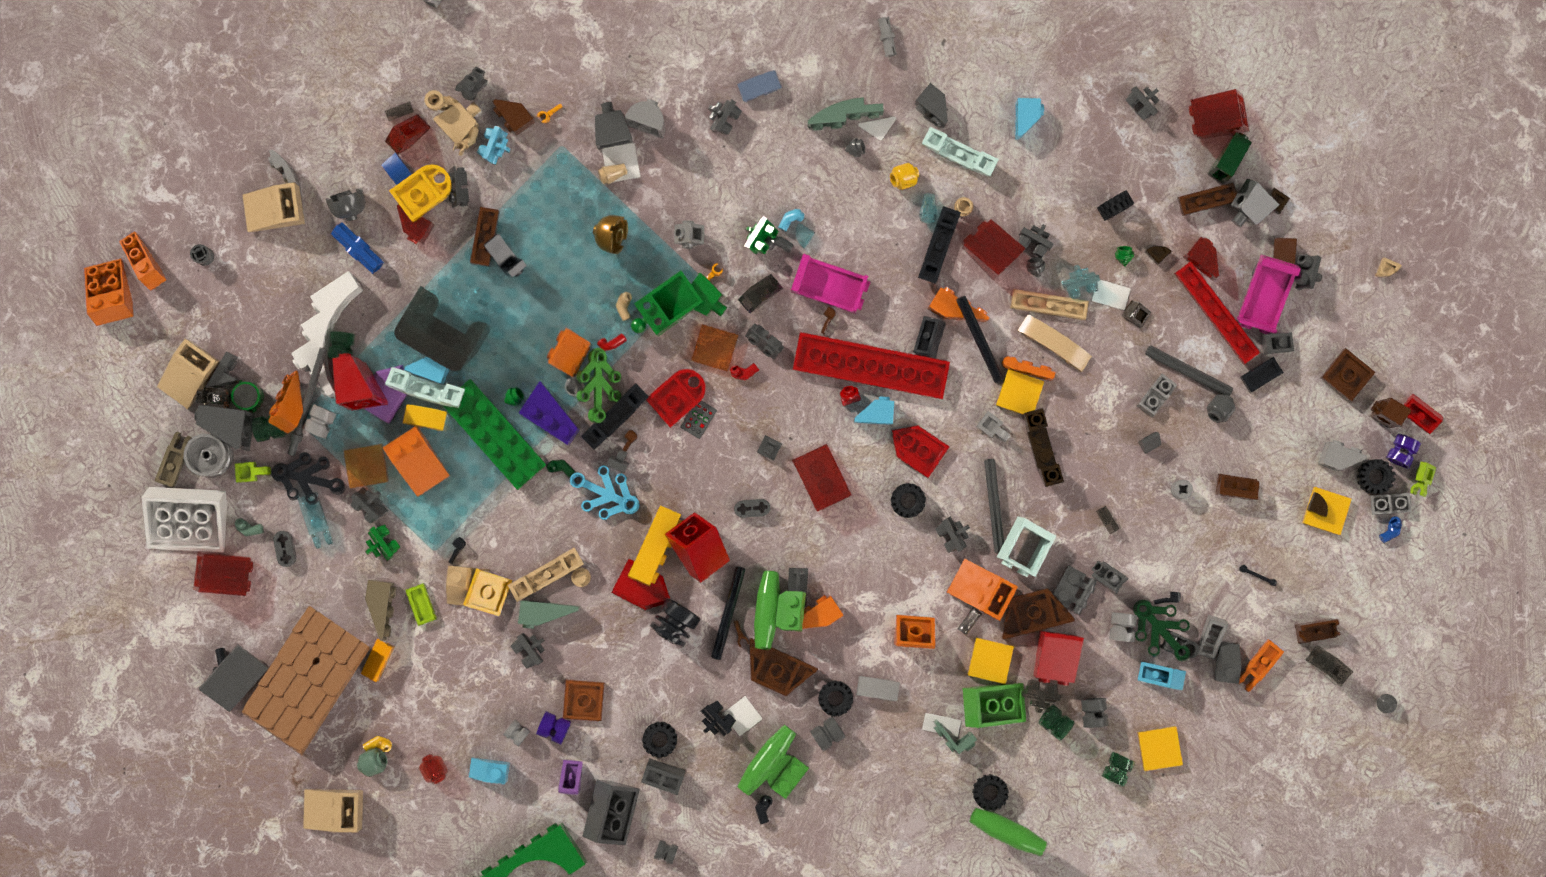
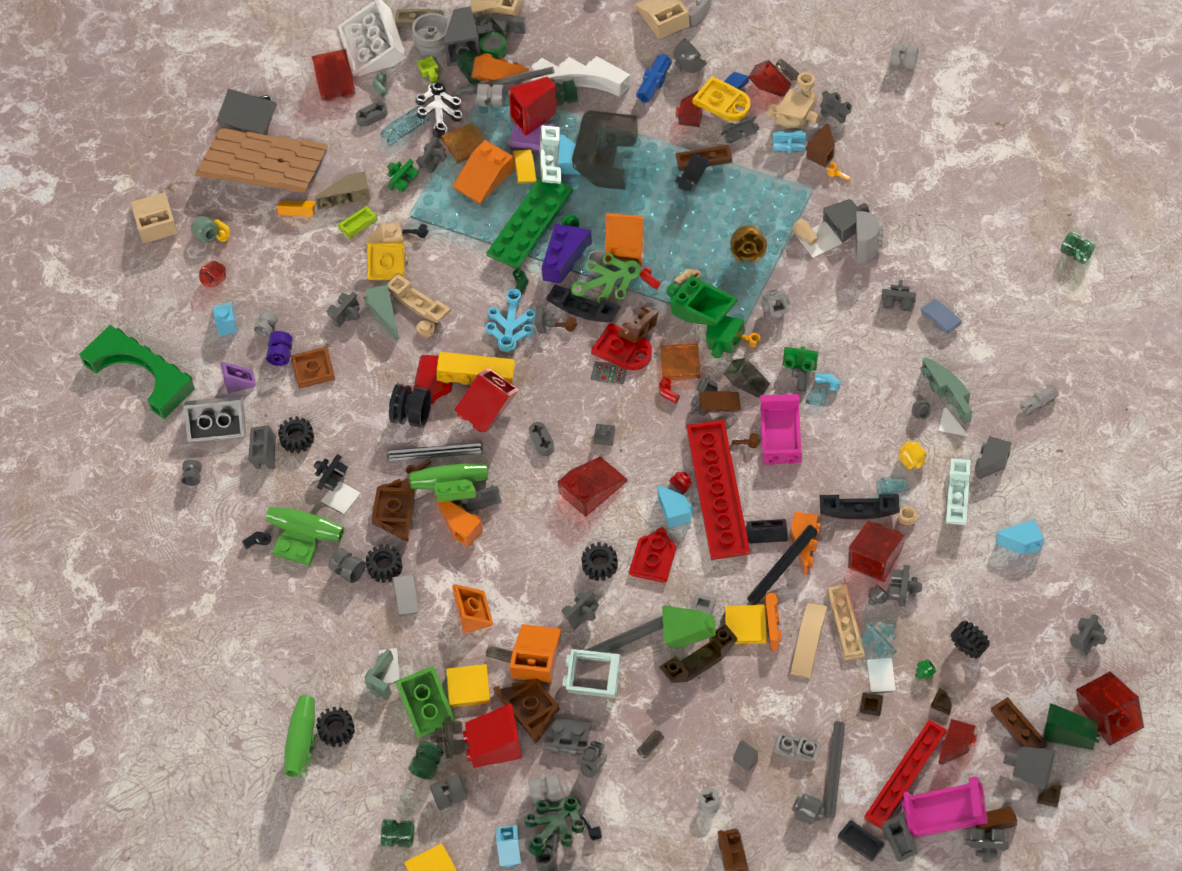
camera: 80 degrees right, 30 degrees down
(661, 372) = (640, 325): none -> reddish brown hinge
(780, 329) = (719, 401): none -> reddish brown slope
(1011, 447) = (686, 626): none -> bright green slope

